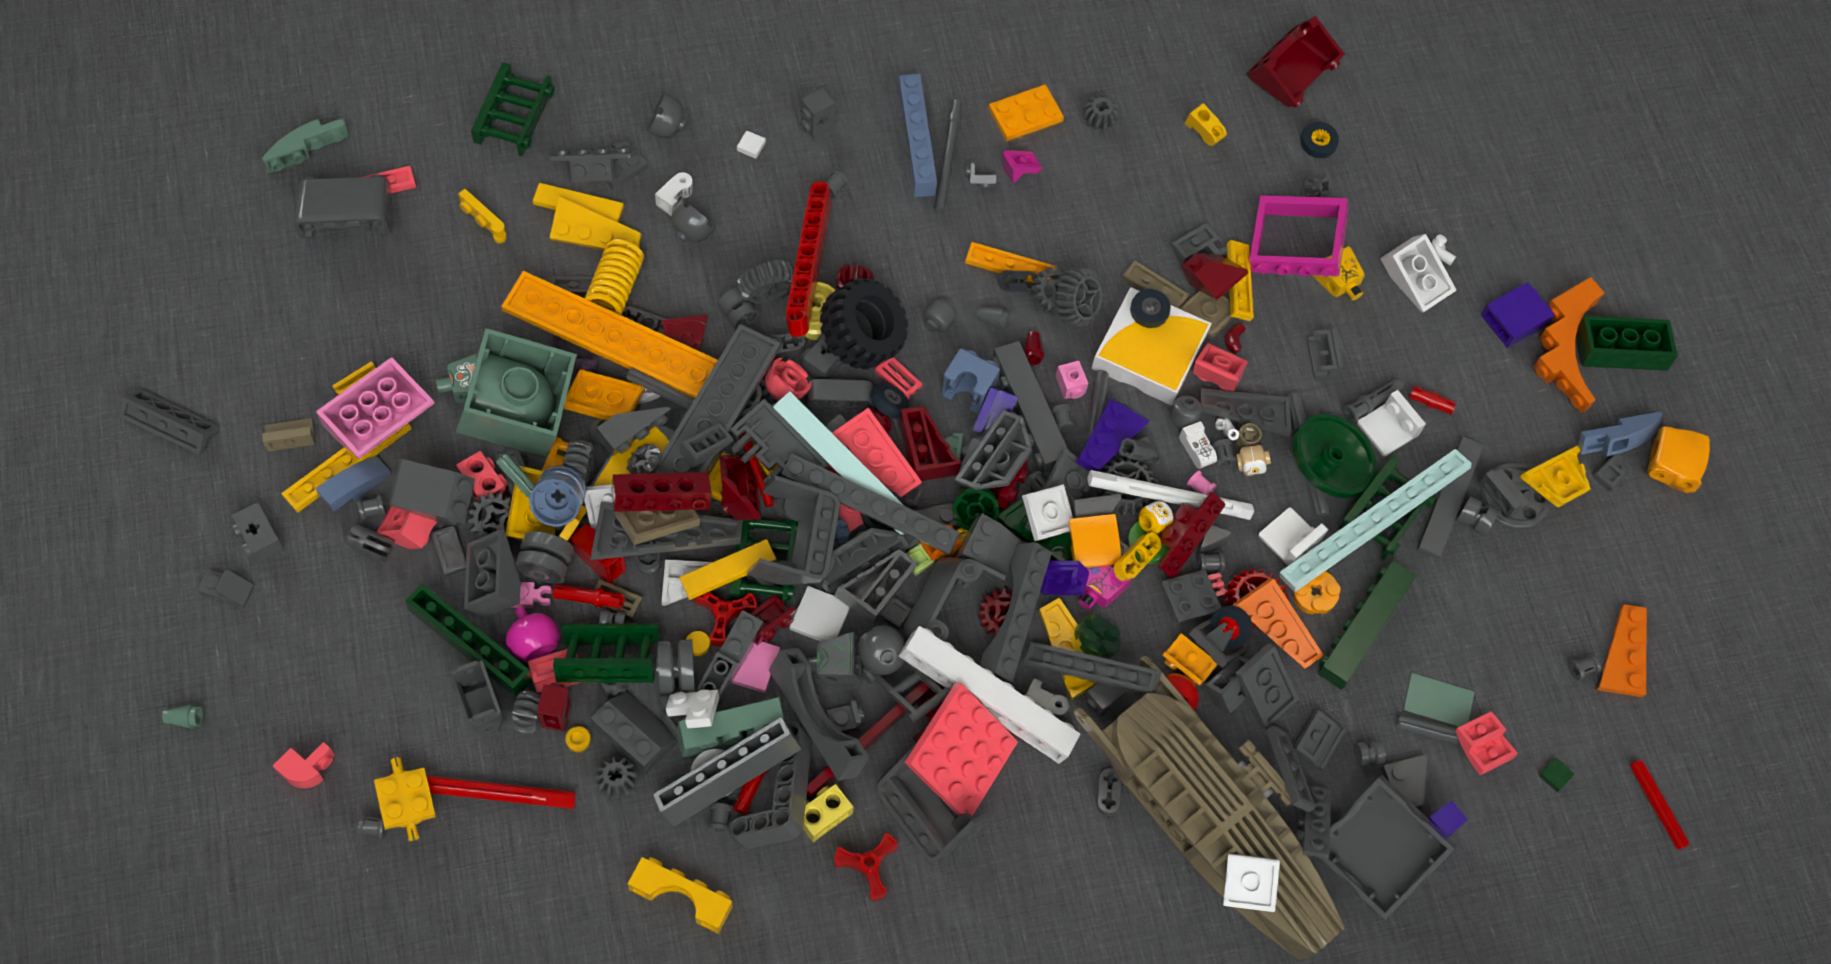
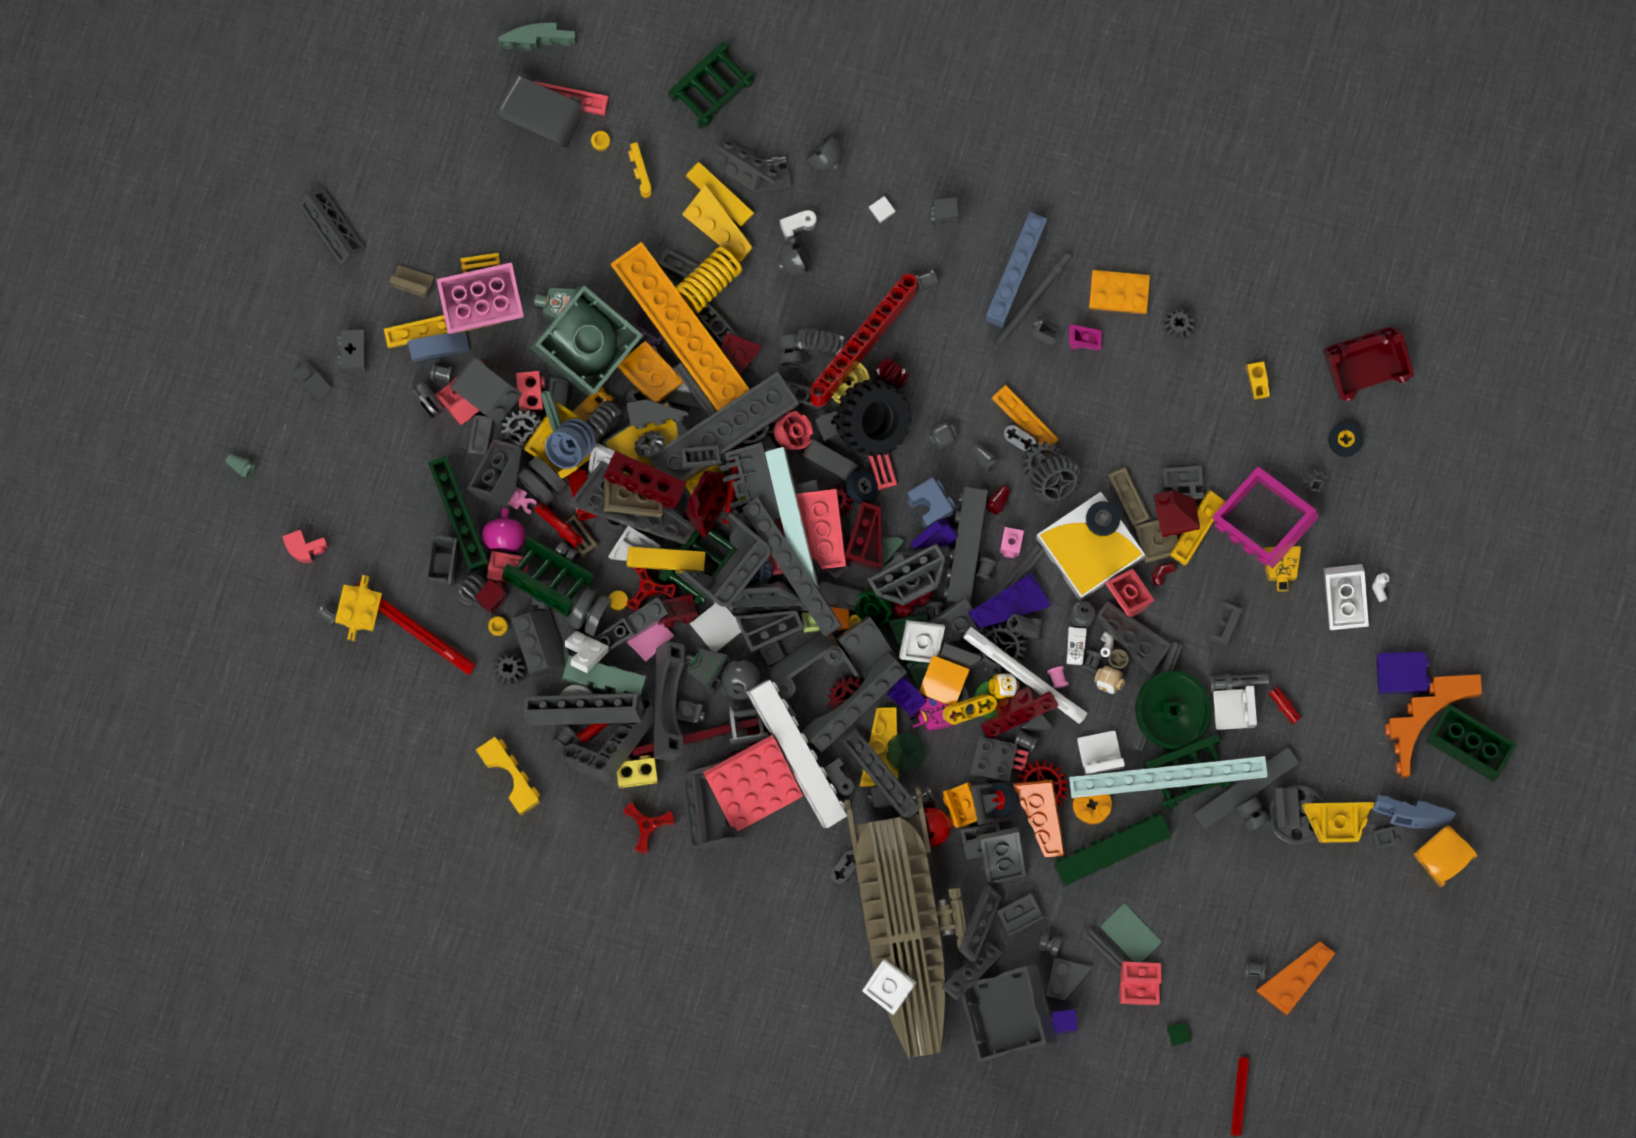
camera: 40 degrees right, 15 degrees up
(424, 210) = (600, 140): none -> yellow tile

